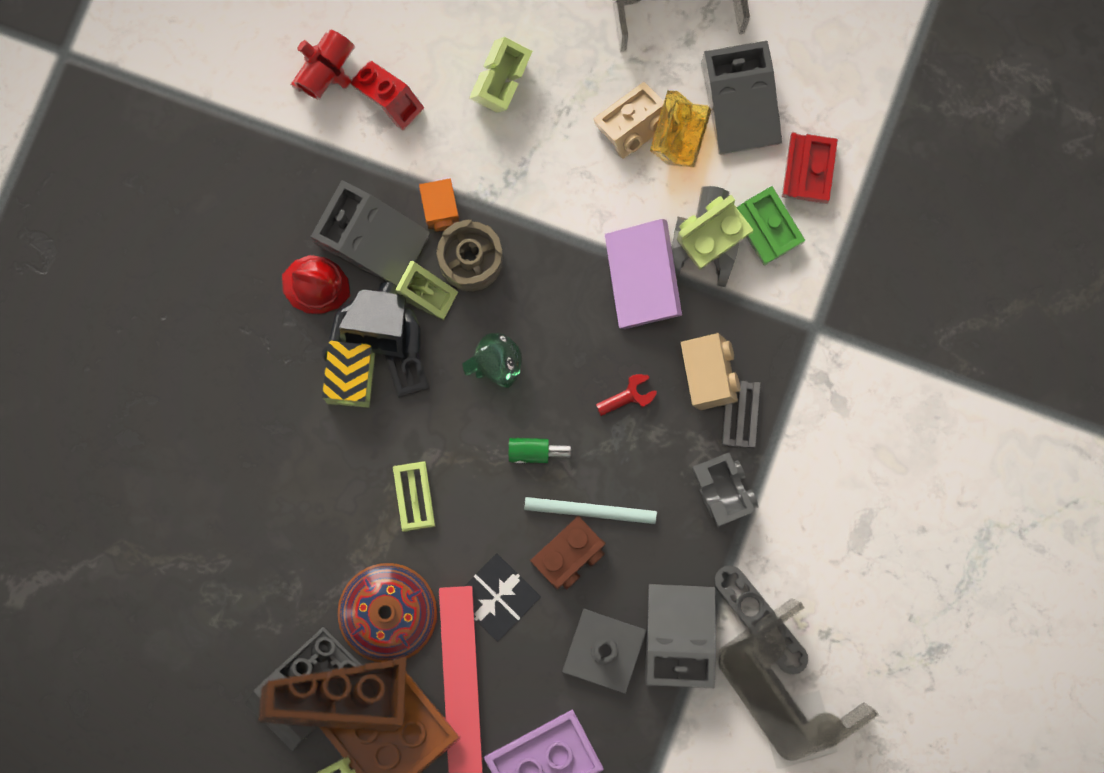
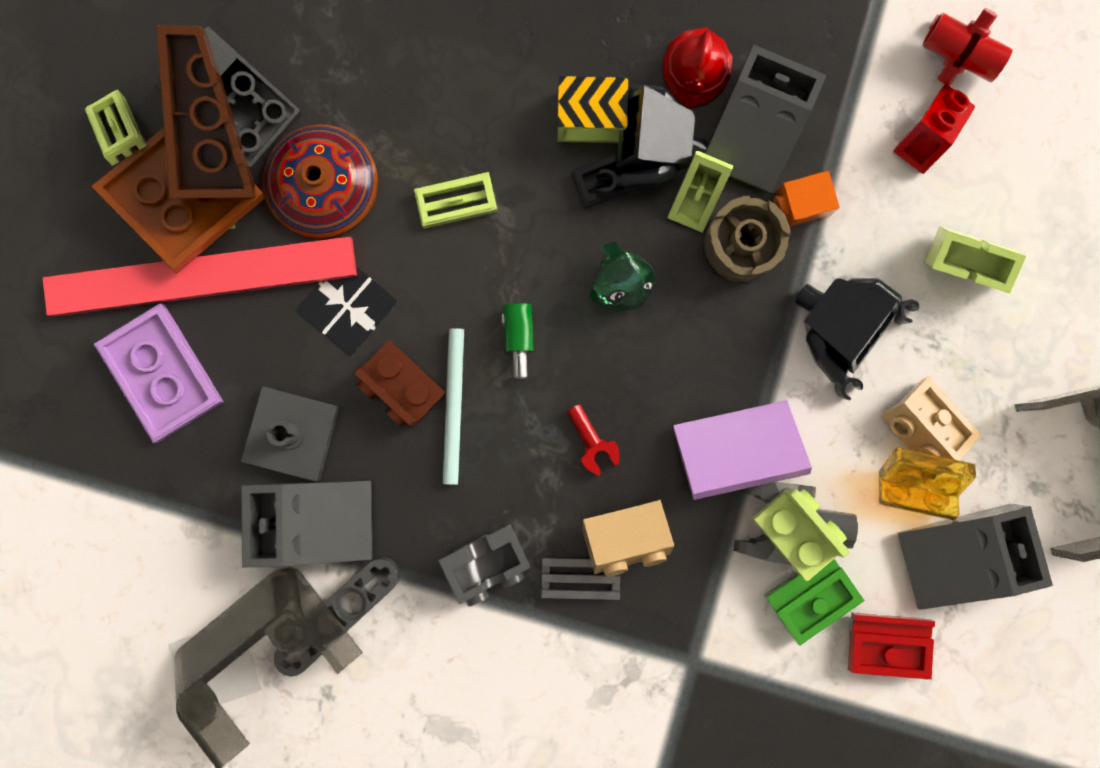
camera: 85 degrees right, 5 degrees up
(546, 179) = (849, 323): none -> black torso

